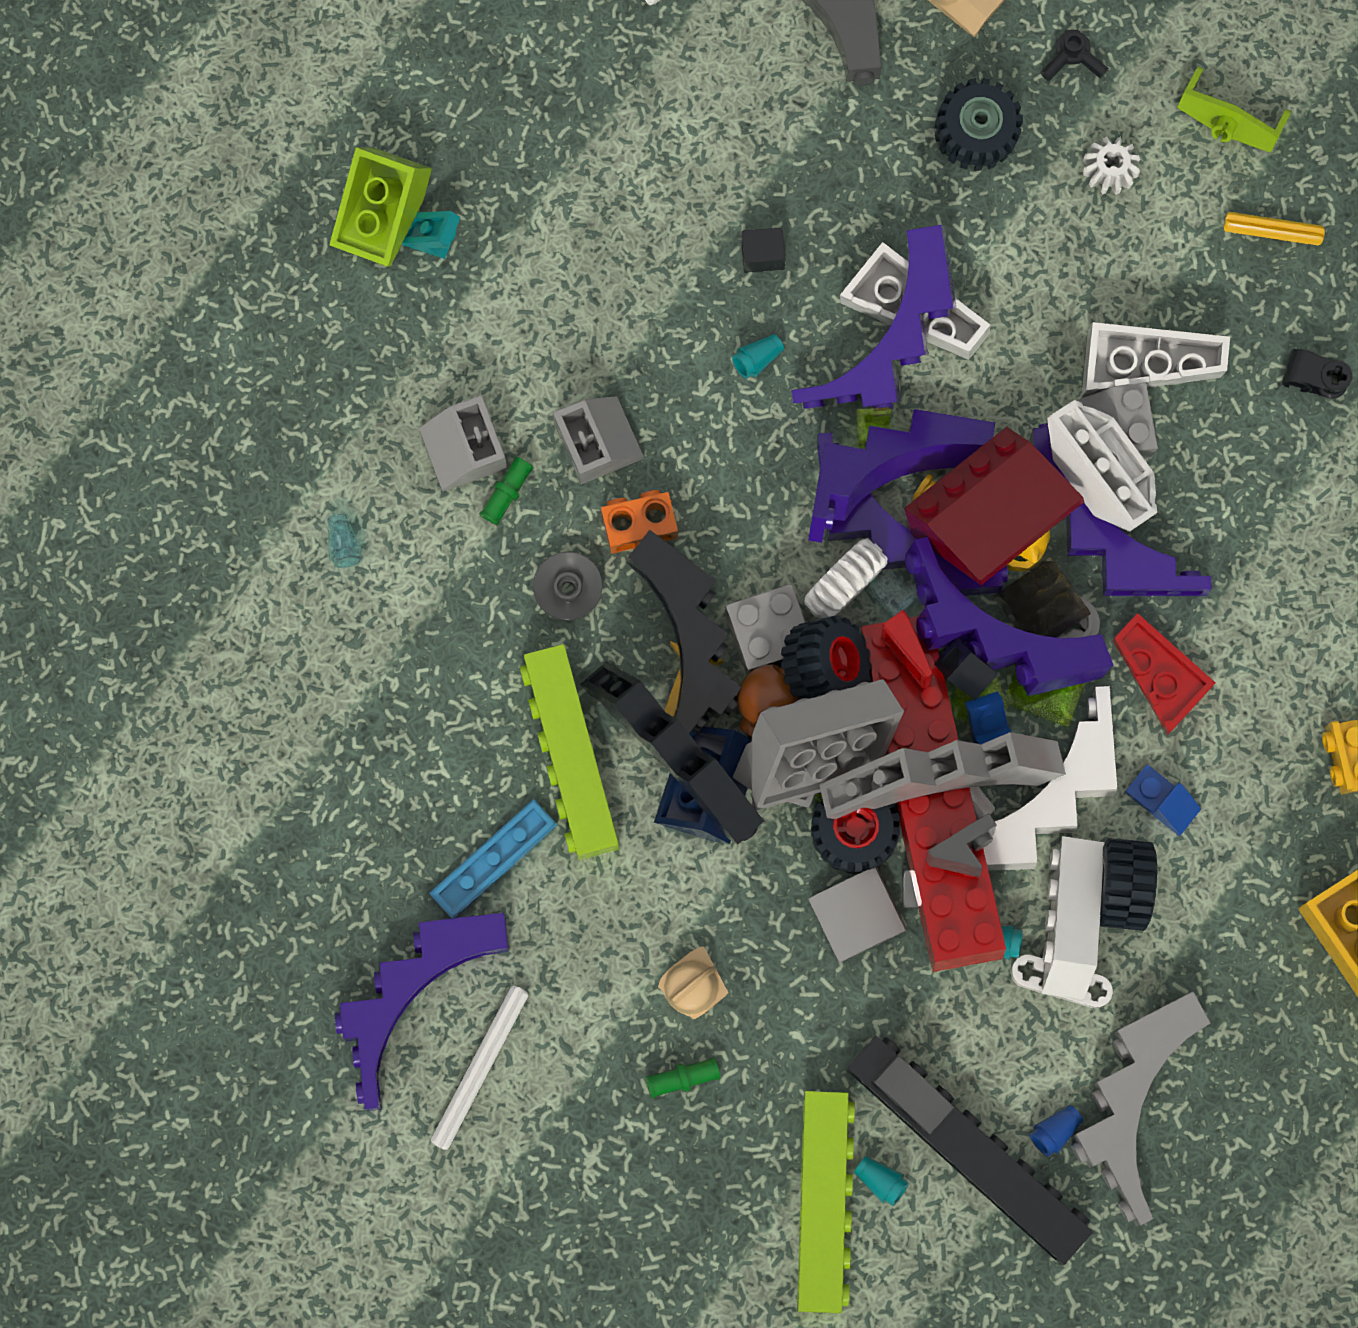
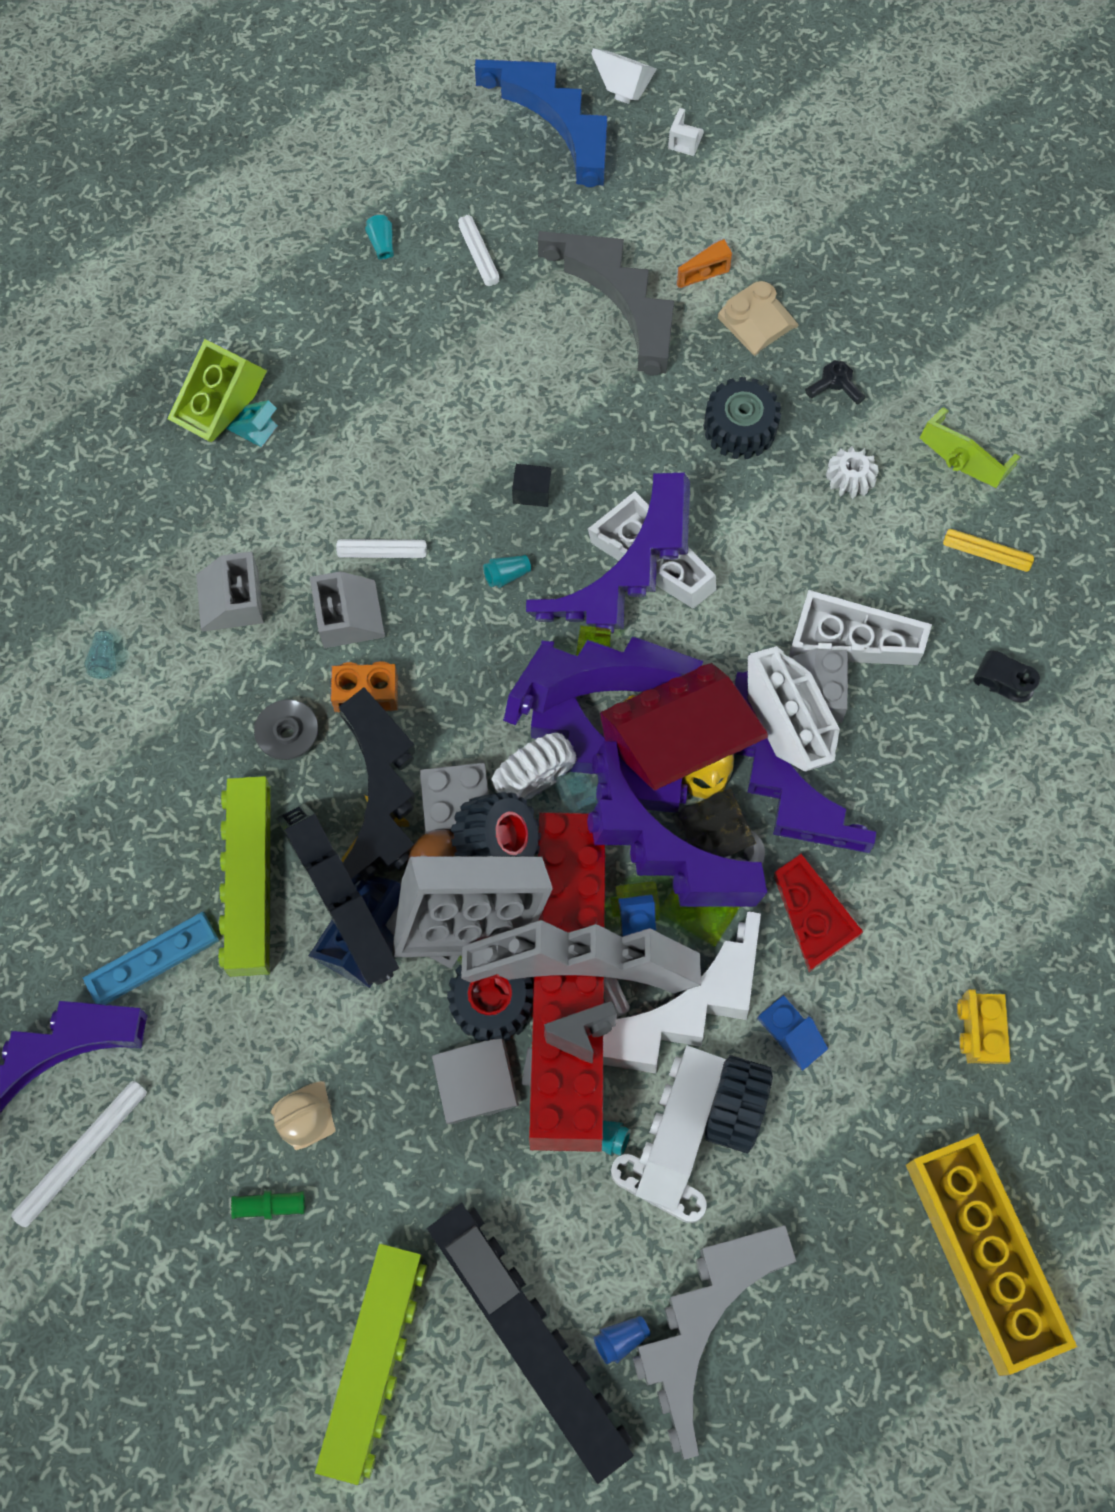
camera: 15 degrees right, 10 degrees down
(506, 490) = (256, 640): green pin -> none
(613, 356) = (381, 548): none -> white axle
(881, 1180) = (436, 1353): teal cone -> none
(903, 642) = (571, 829): red slope -> none
(965, 669) = (624, 867): black panel -> none

